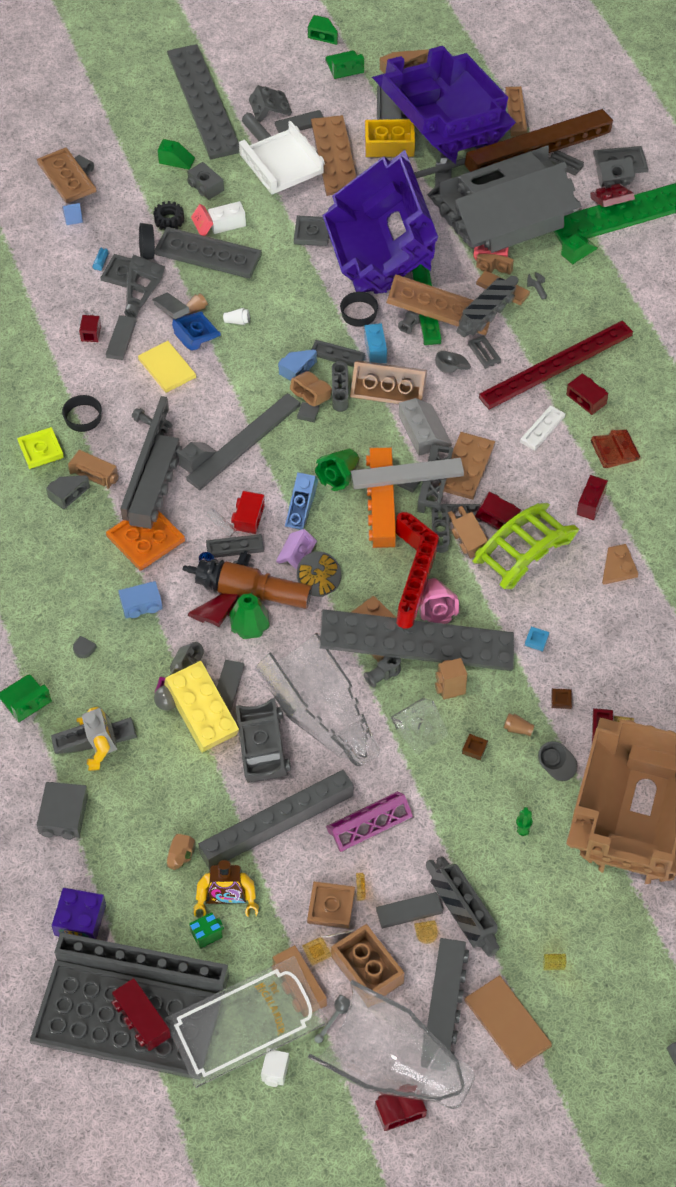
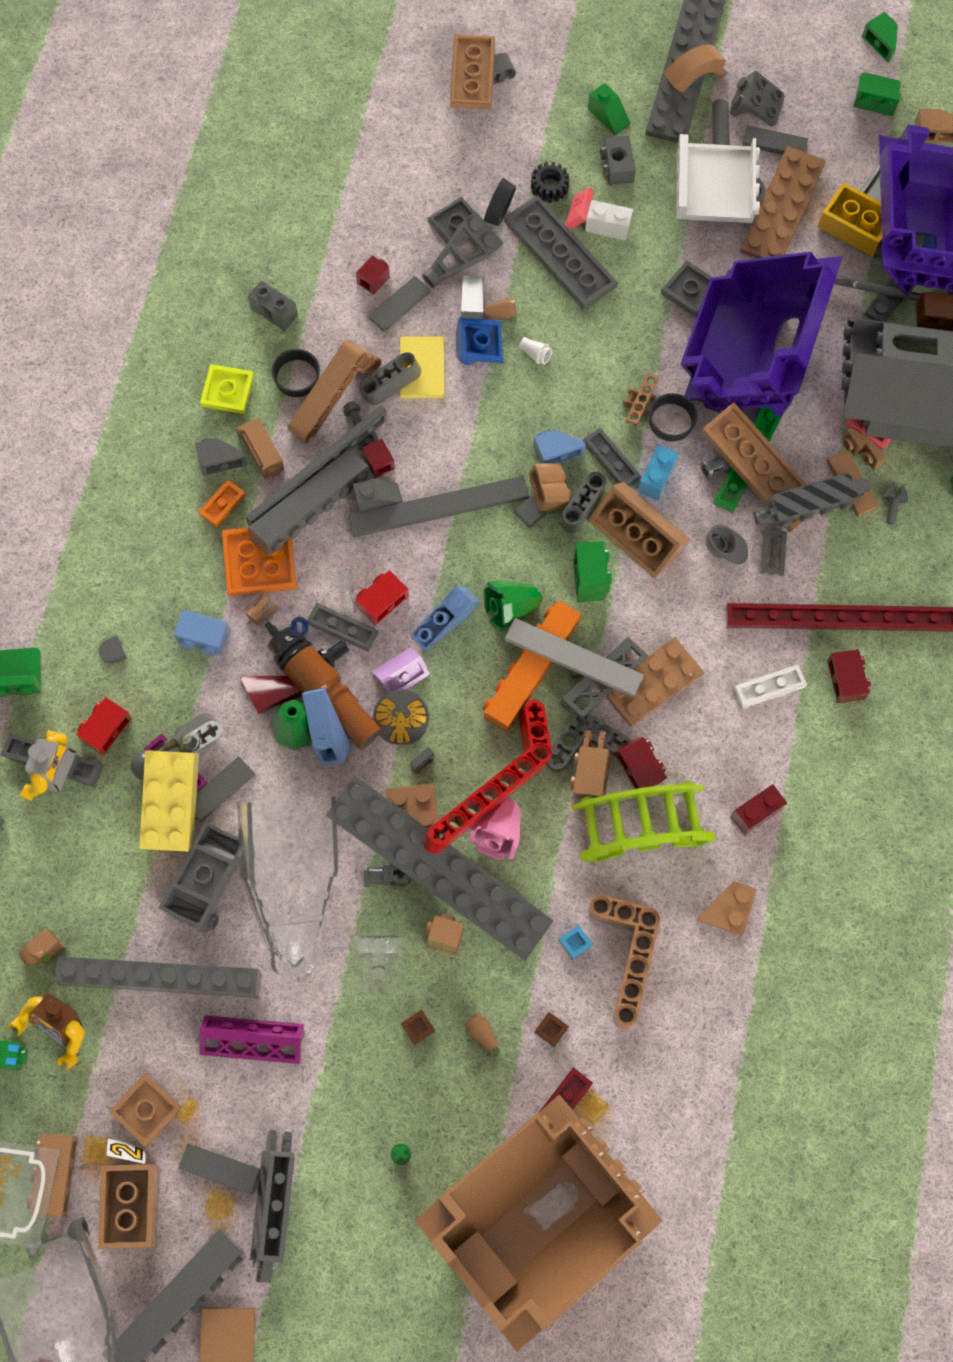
camera: 30 degrees right, 15 degrees up
(34, 381) = (273, 305): none -> dark grey brick
(72, 214) = (451, 121): medium blue slope -> none
(92, 517) = (222, 503): none -> orange plate
(100, 259) = (443, 194): dark azure piece -> none
(115, 693) = (103, 725): none -> red brick
(121, 381) = (330, 387): none -> medium nougat beam
(152, 381) = (390, 378): none -> dark grey beam
(170, 570) = (255, 614): none -> medium nougat piece
(181, 430) = (378, 458): none -> dark red brick
(215, 100) = (695, 64): none -> medium nougat arch
(275, 601) = (325, 728): none -> medium blue slope
(334, 305) = (638, 394): none -> medium nougat piece
(353, 591) = (422, 760): none -> dark grey tile
(378, 420) = (591, 571): none -> green brick
(422, 425) = (640, 606): light grey slope -> none
(554, 962) = (318, 1334): clear yellow tile -> none
(557, 761) = (490, 1103): dark grey cap -> none
(580, 622) = (643, 957): none -> medium nougat beam
(615, 448) = (832, 762): clear red slope -> none
(643, 796) = (551, 1206): none -> clear tile

